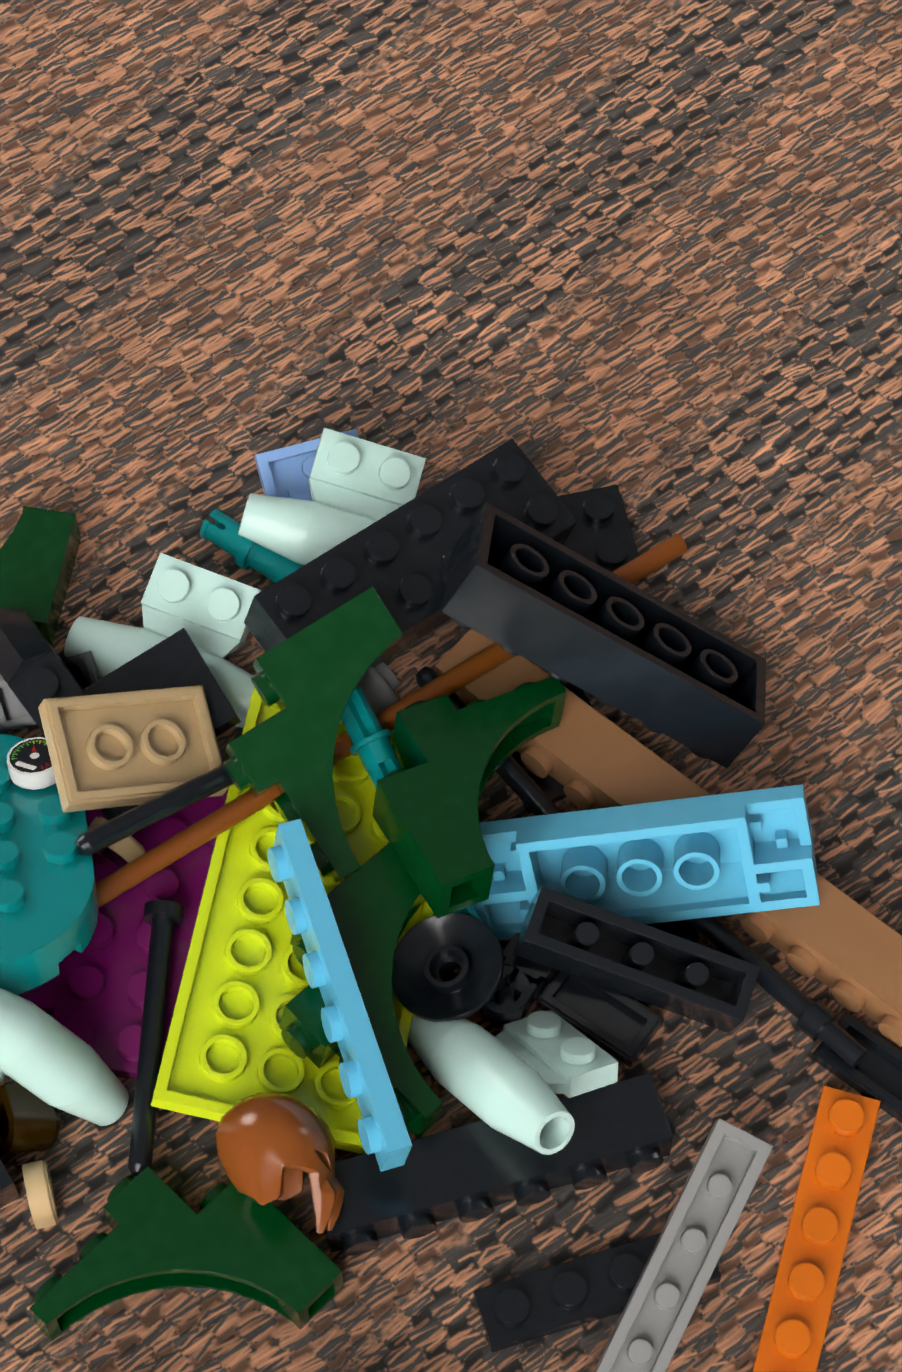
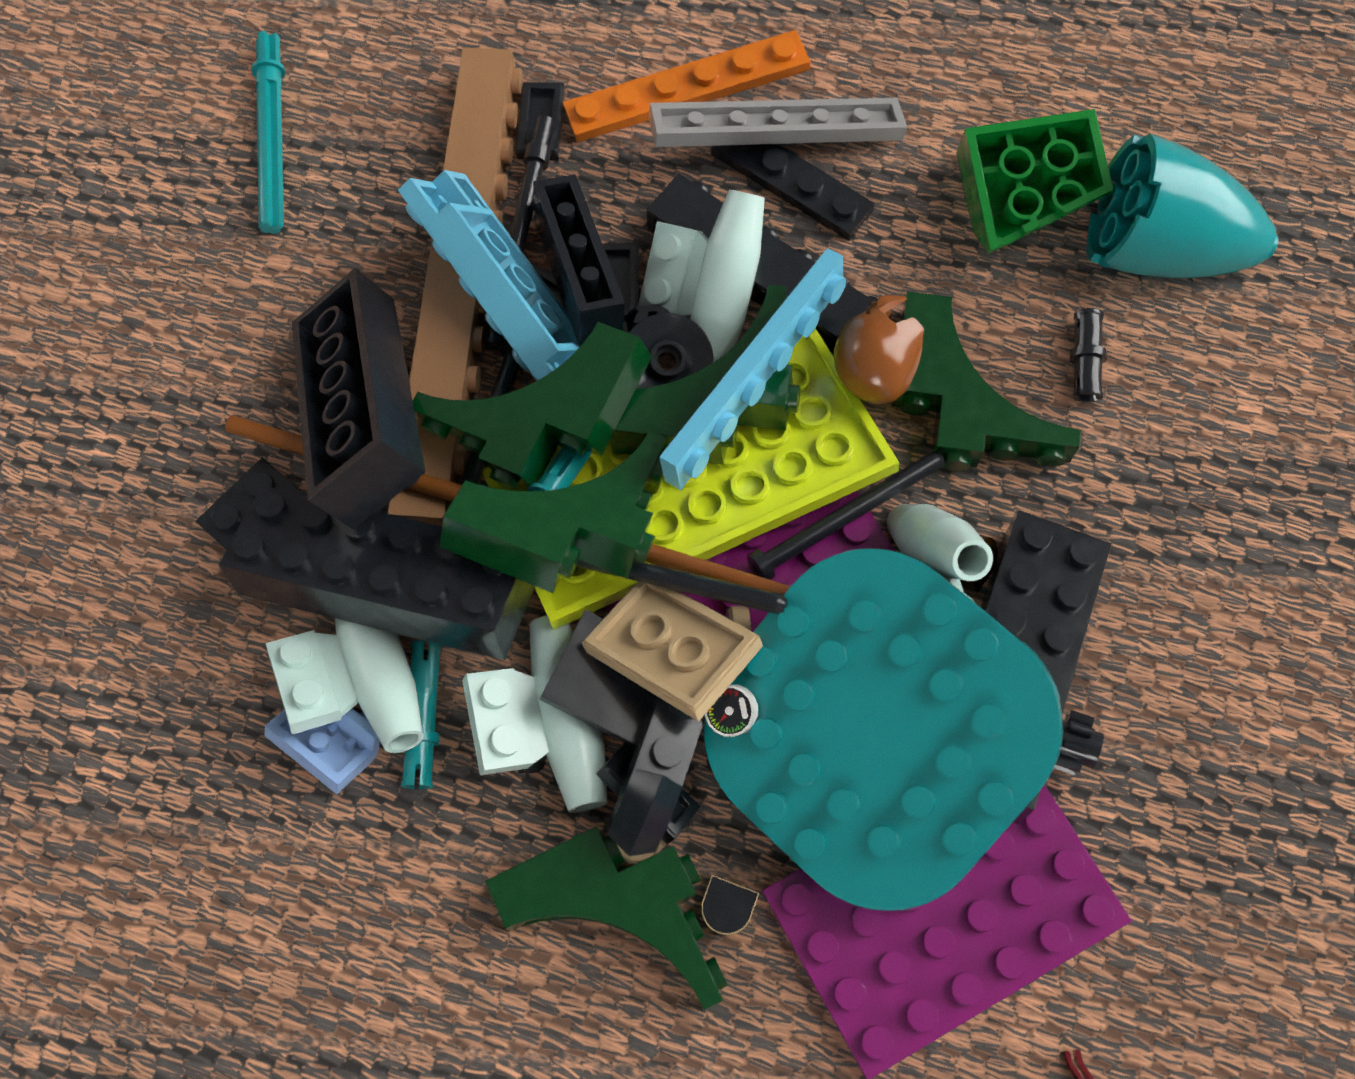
camera: 120 degrees left, 10 degrees up
(40, 1194) = (996, 513): tan tile -> none

